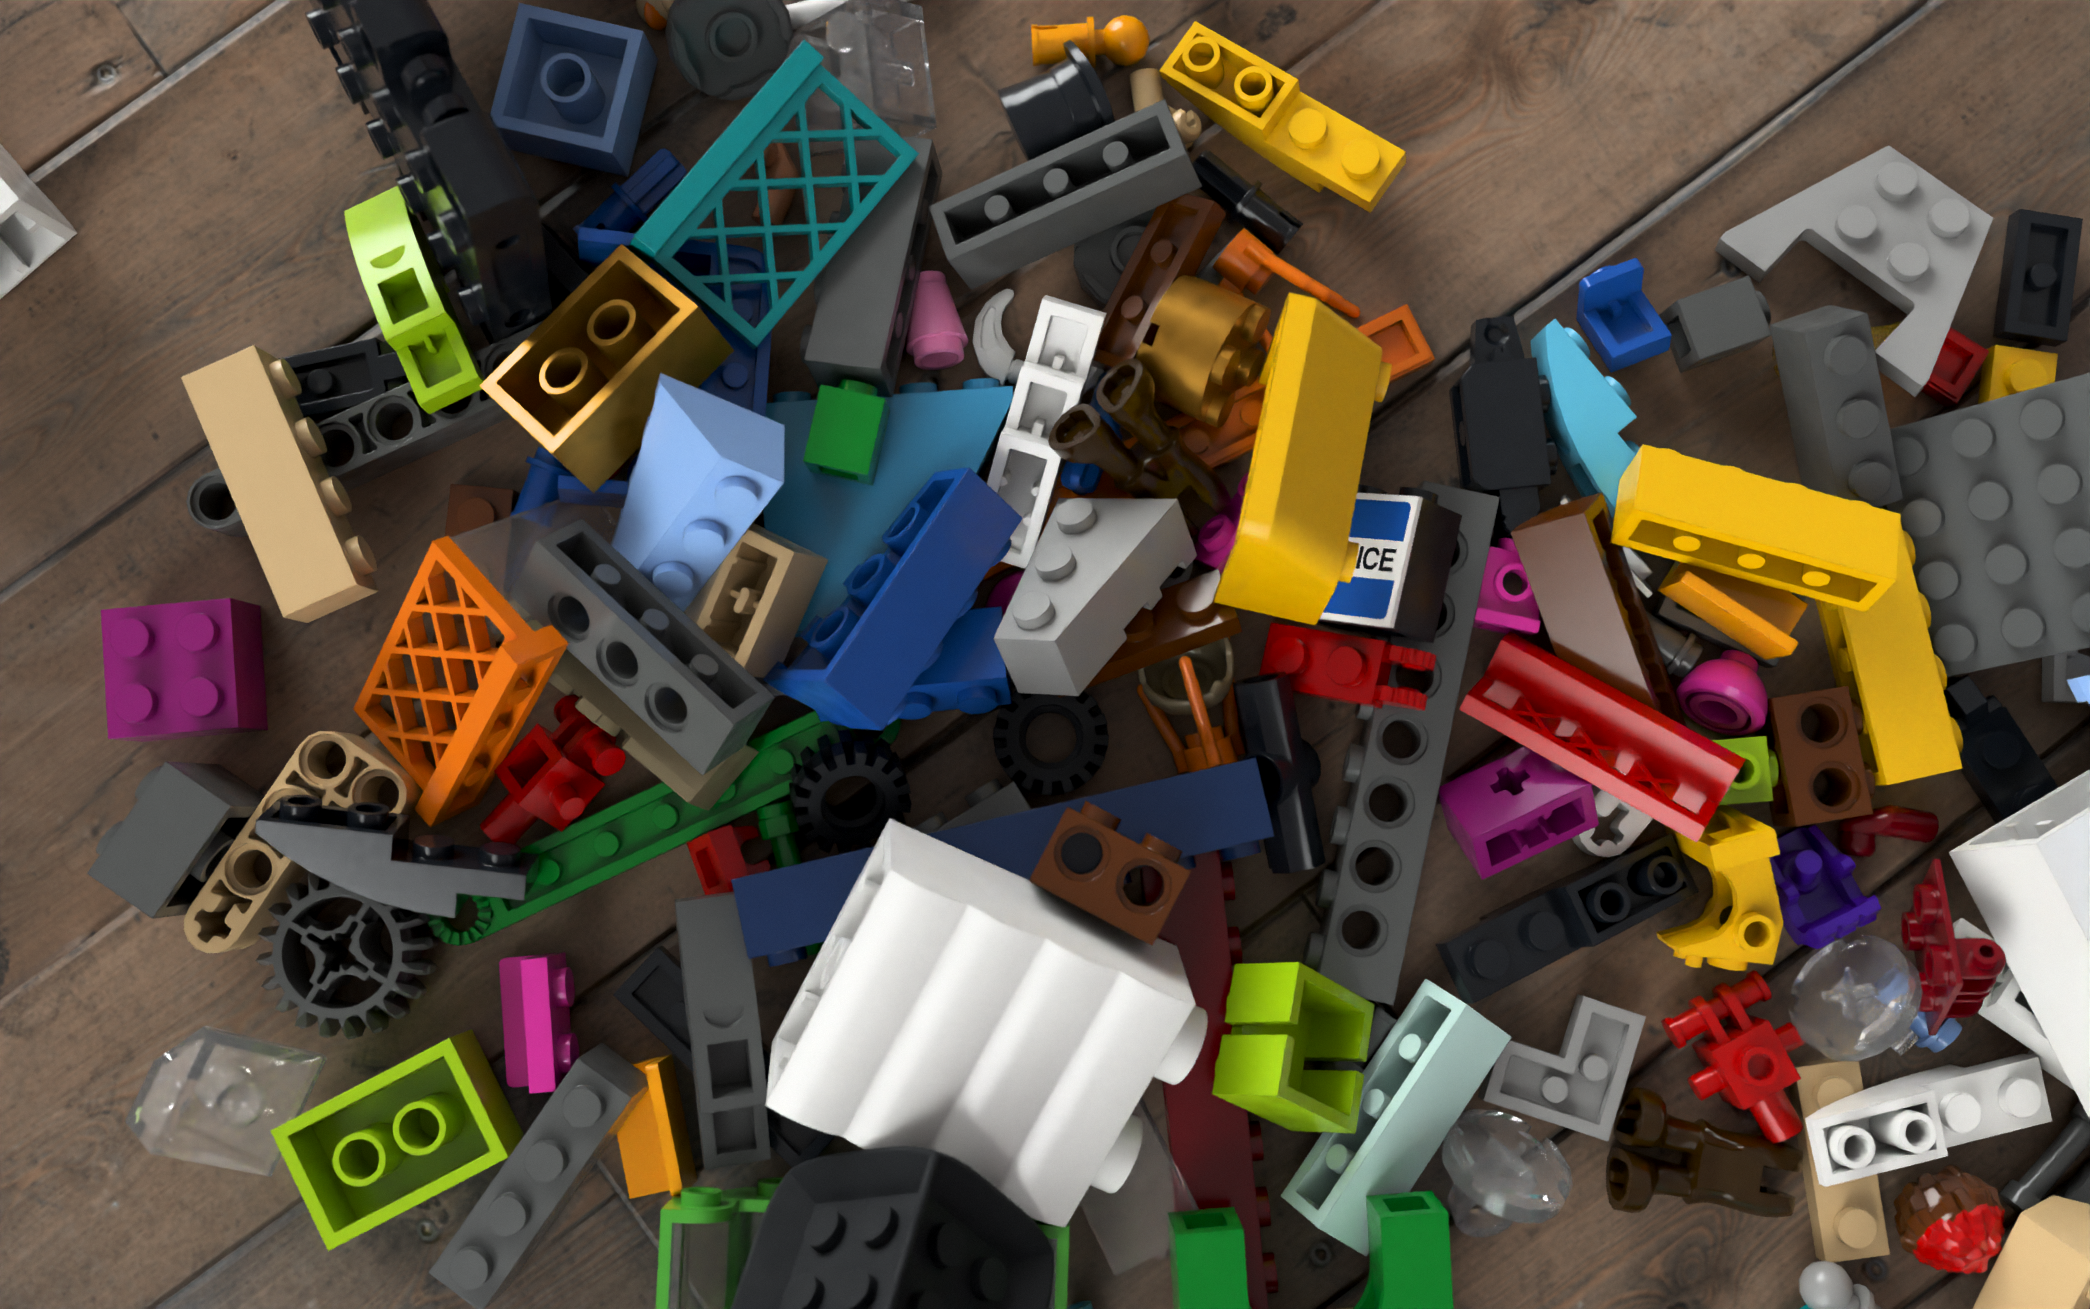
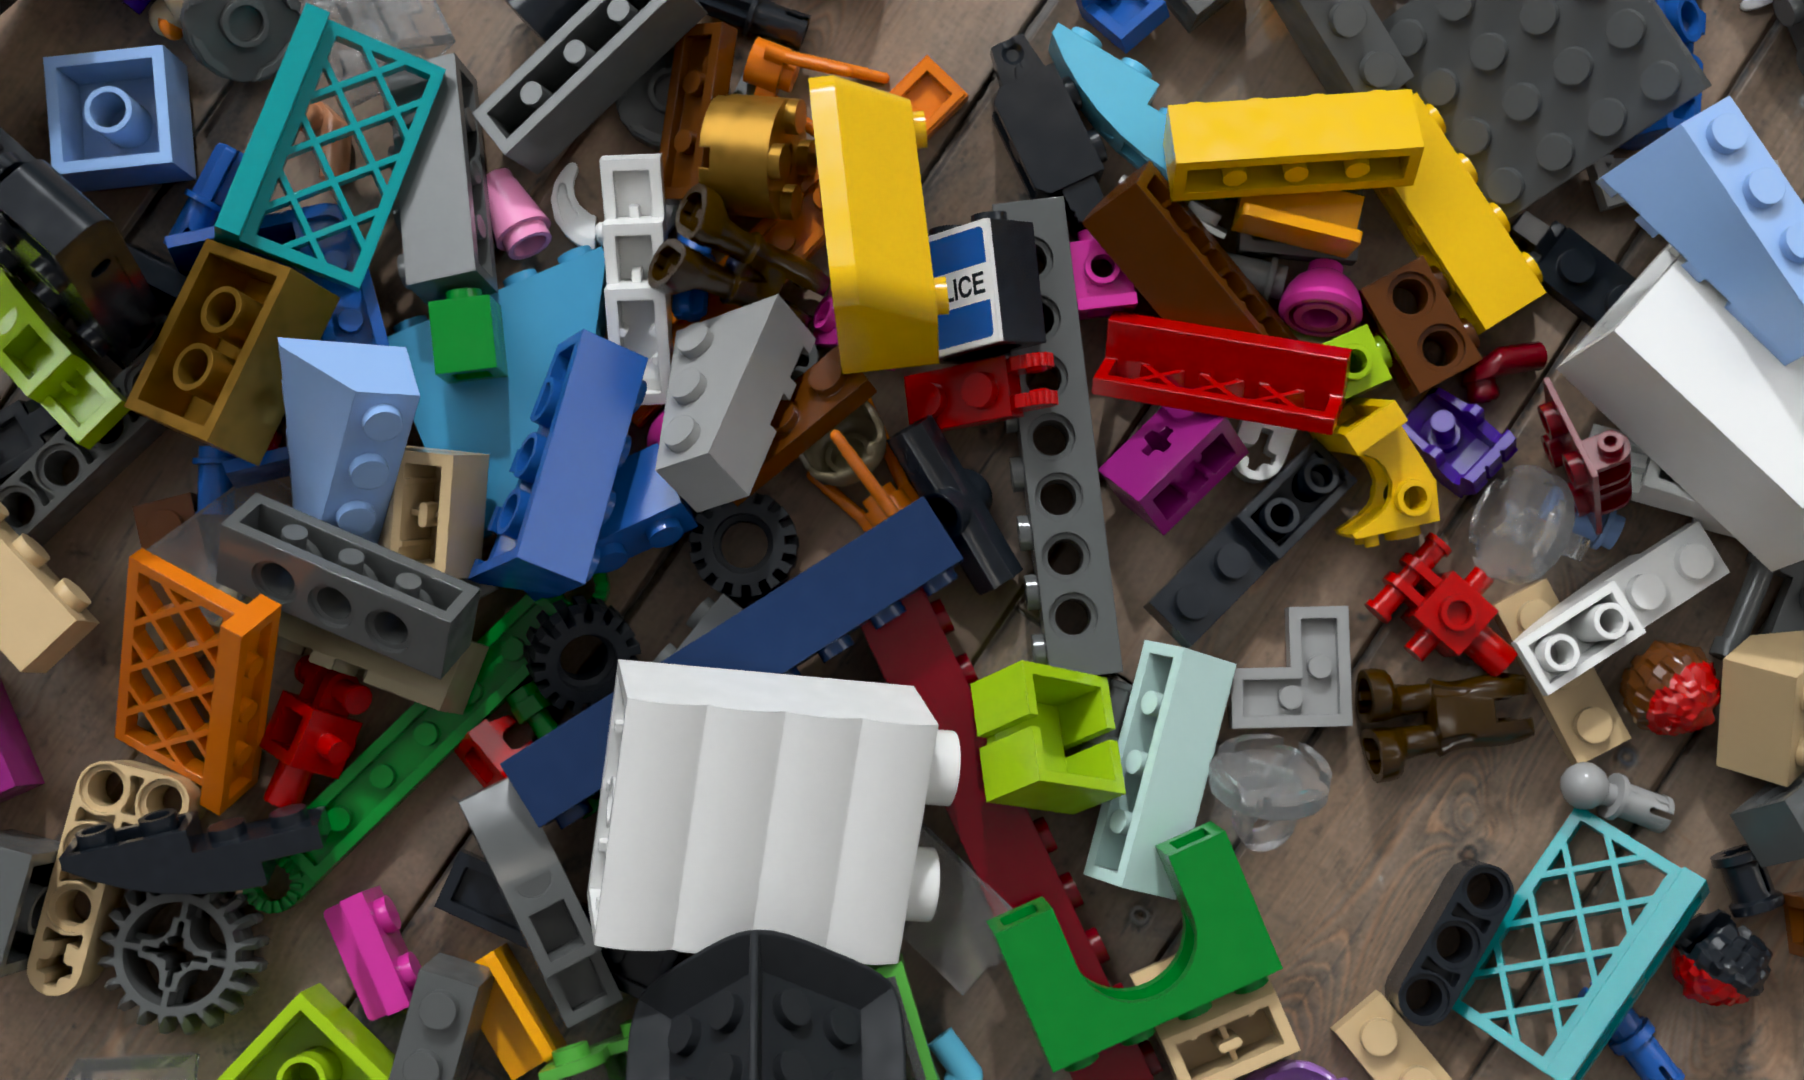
camera: 20 degrees left, 0 degrees up
(1102, 888) = (825, 655): reddish brown brick -> none

